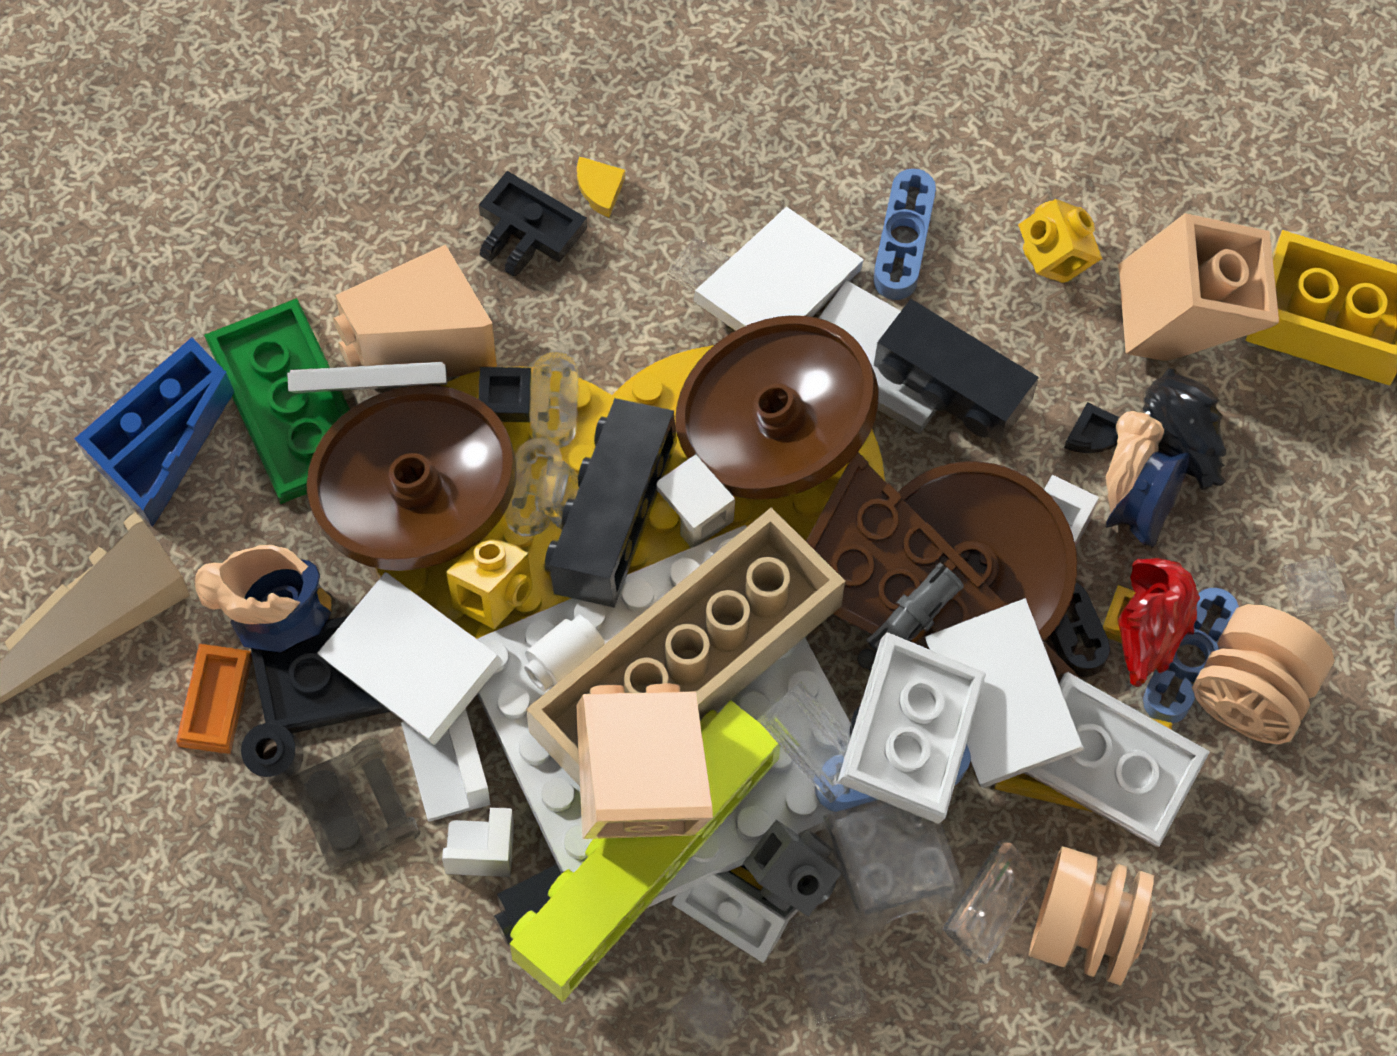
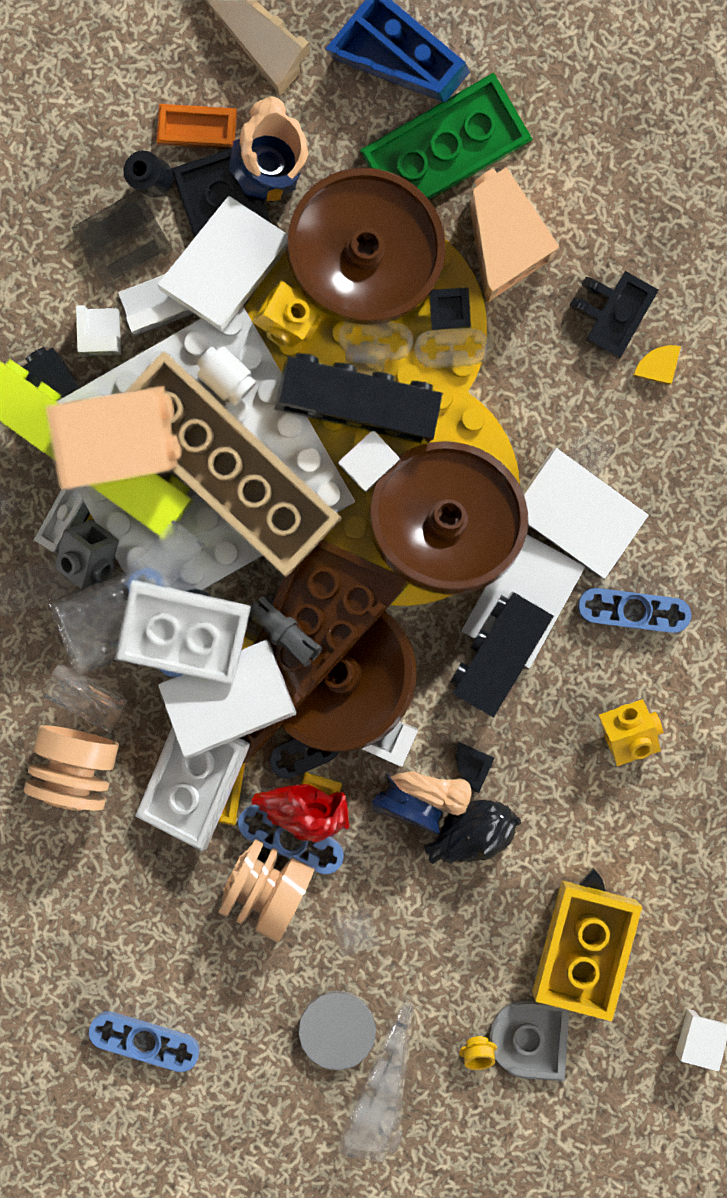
camera: 90 degrees right, 25 degrees up
(366, 377) = (447, 202): white tile -> none
(1197, 288) = (584, 841): light nougat slope -> none

